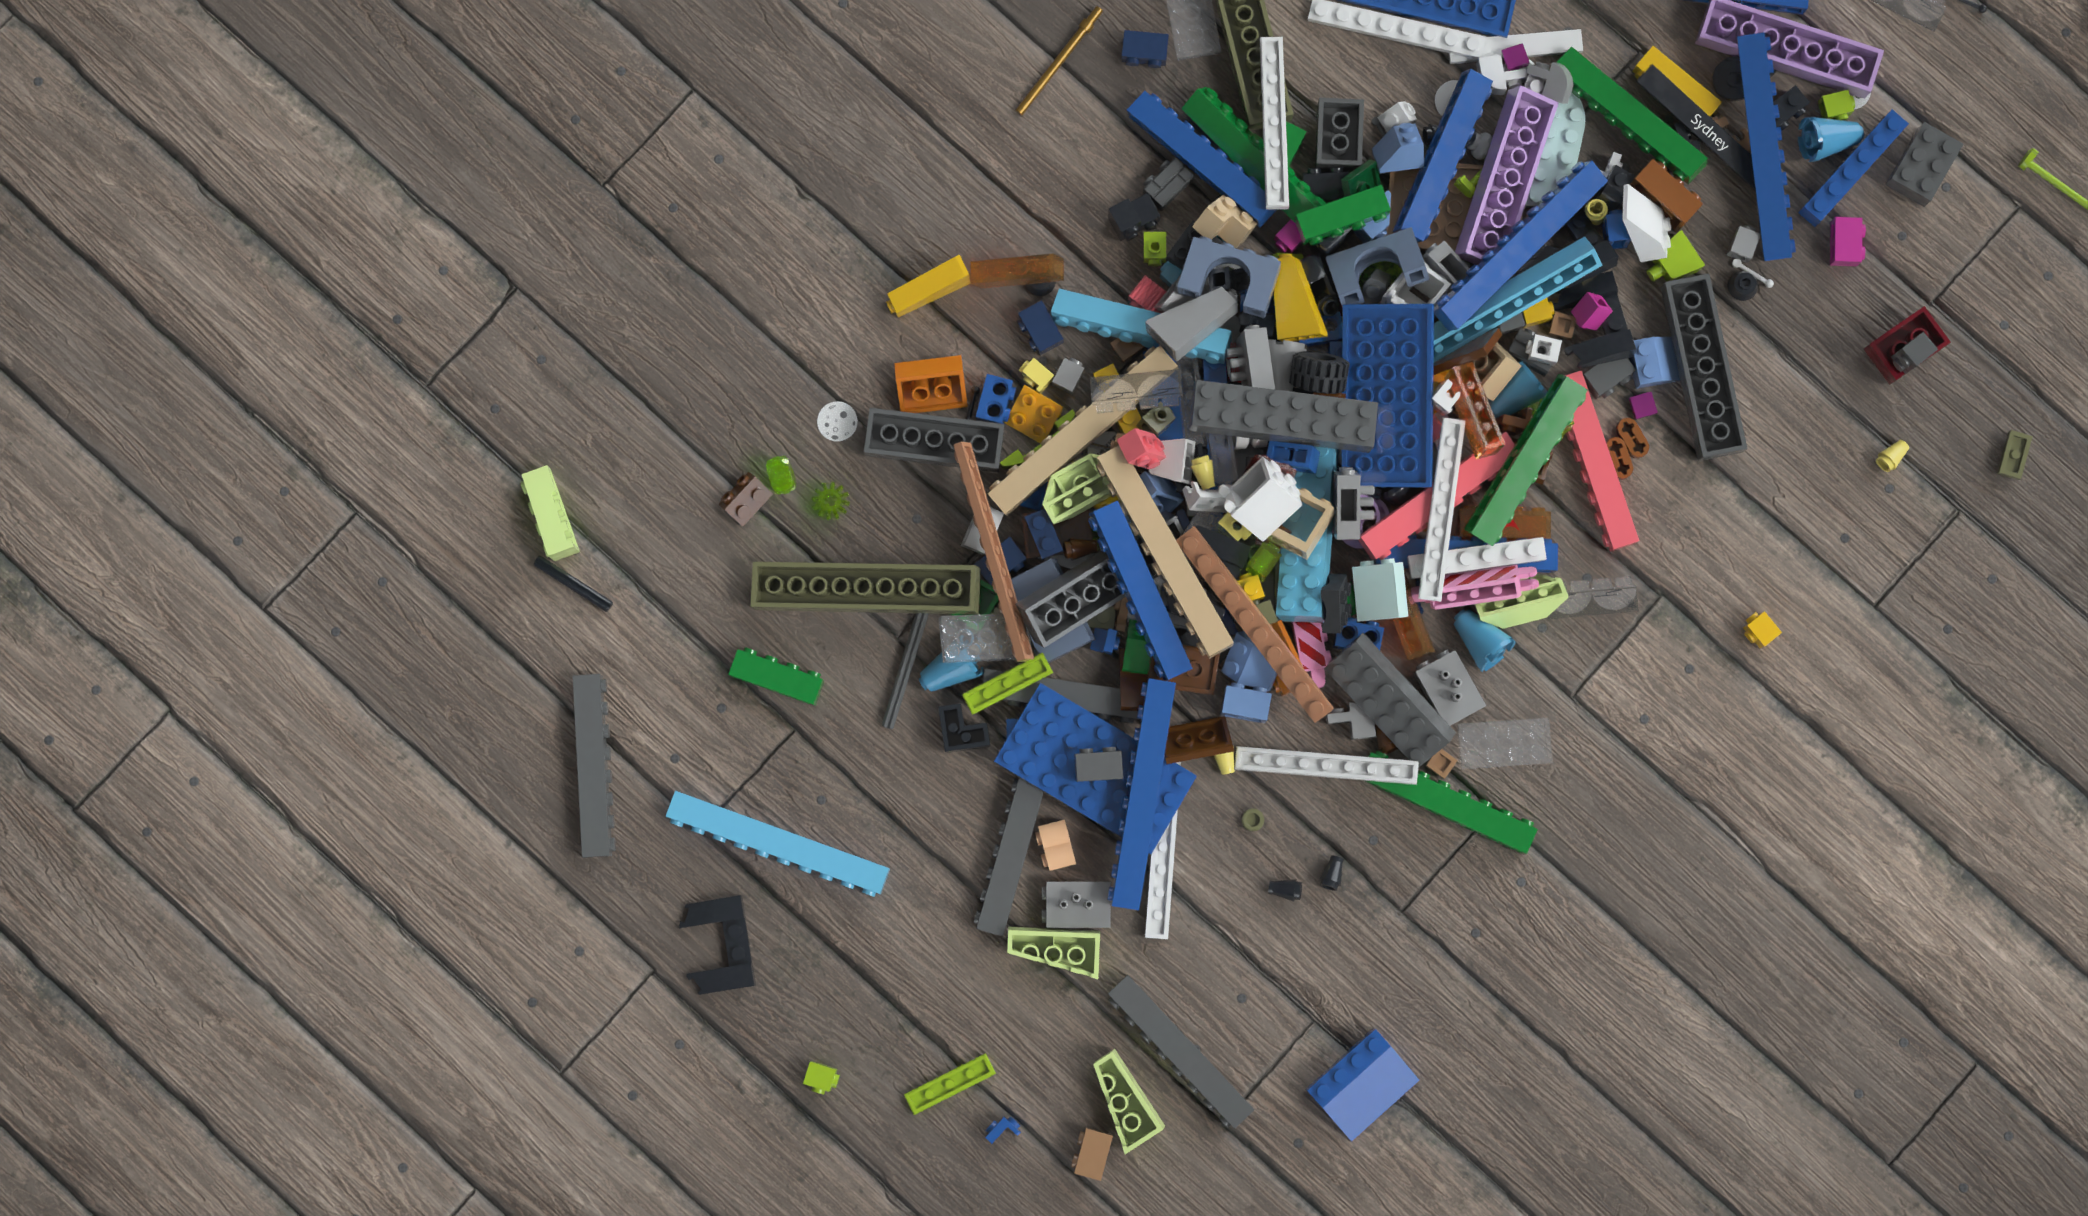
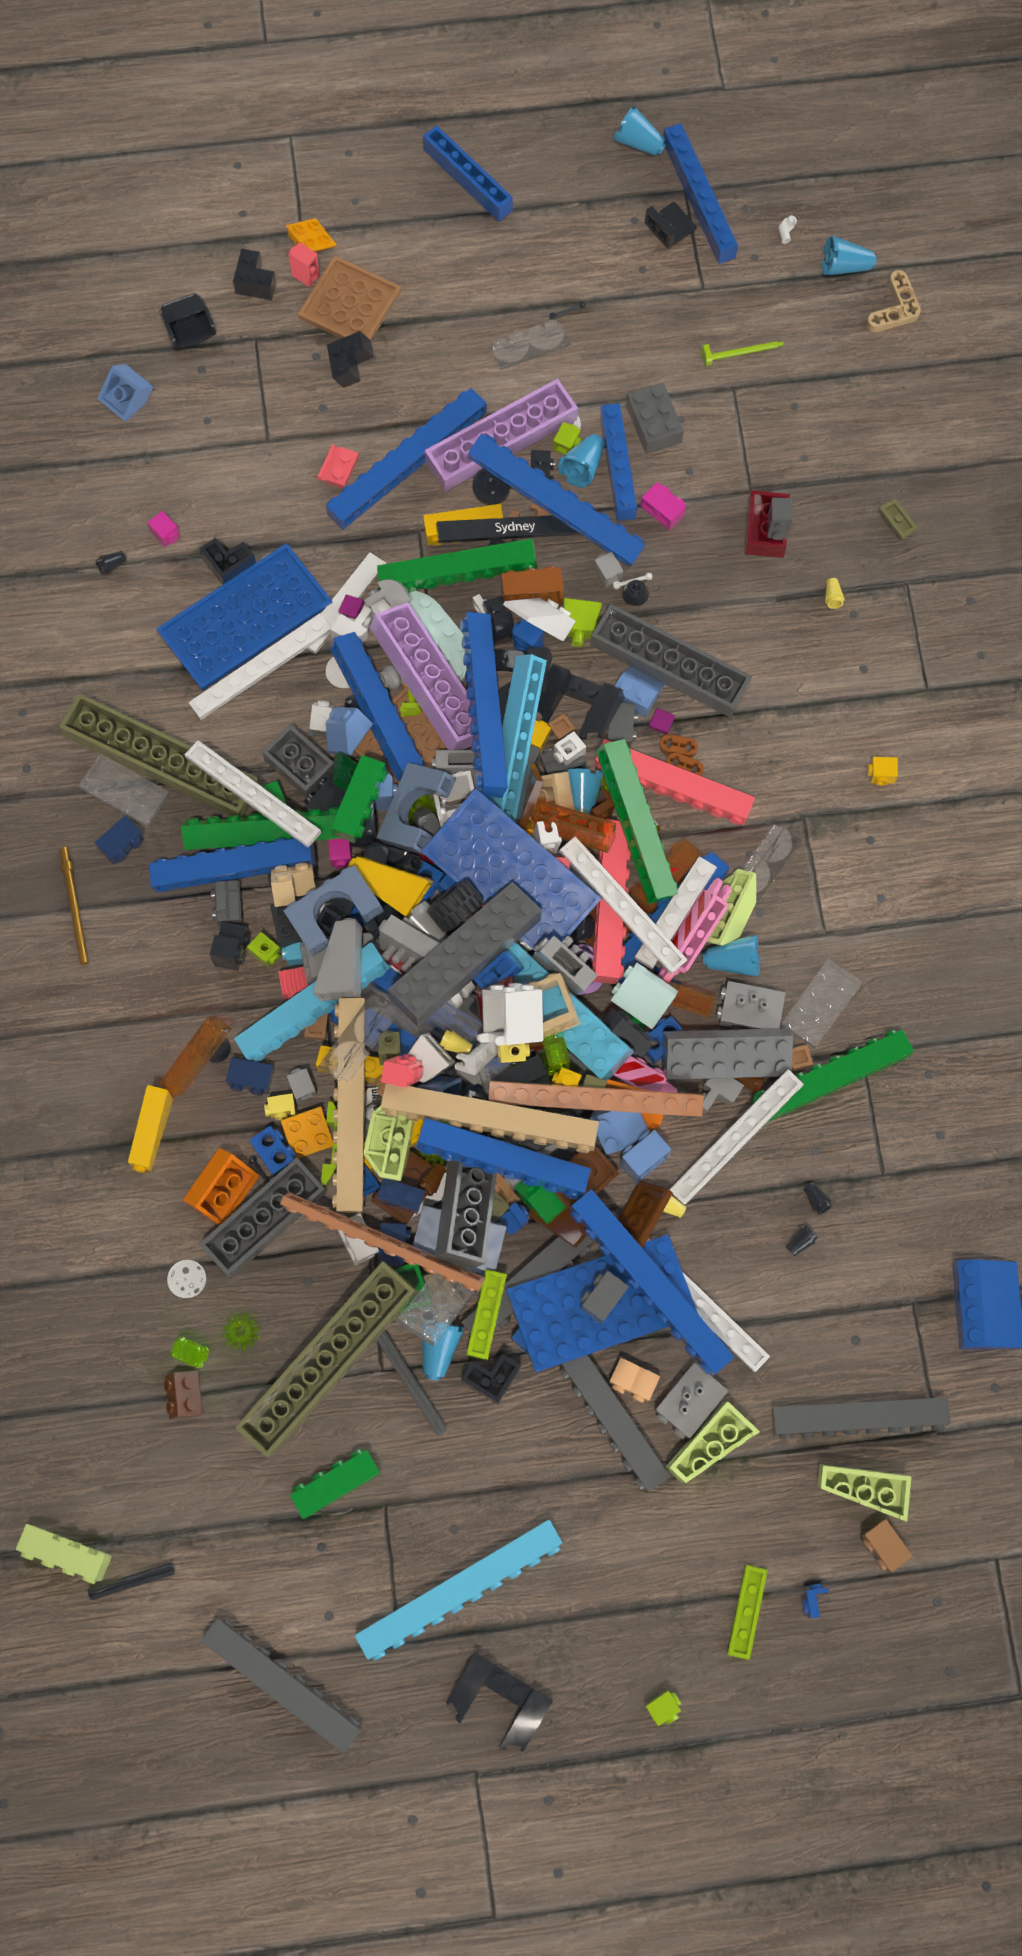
camera: 55 degrees left, 10 degrees down
(1252, 820) = (731, 1223): olive tile -> none
(1591, 311) = (569, 699): dark pink brick -> none
(1596, 211) = (504, 639): light yellow cone -> none

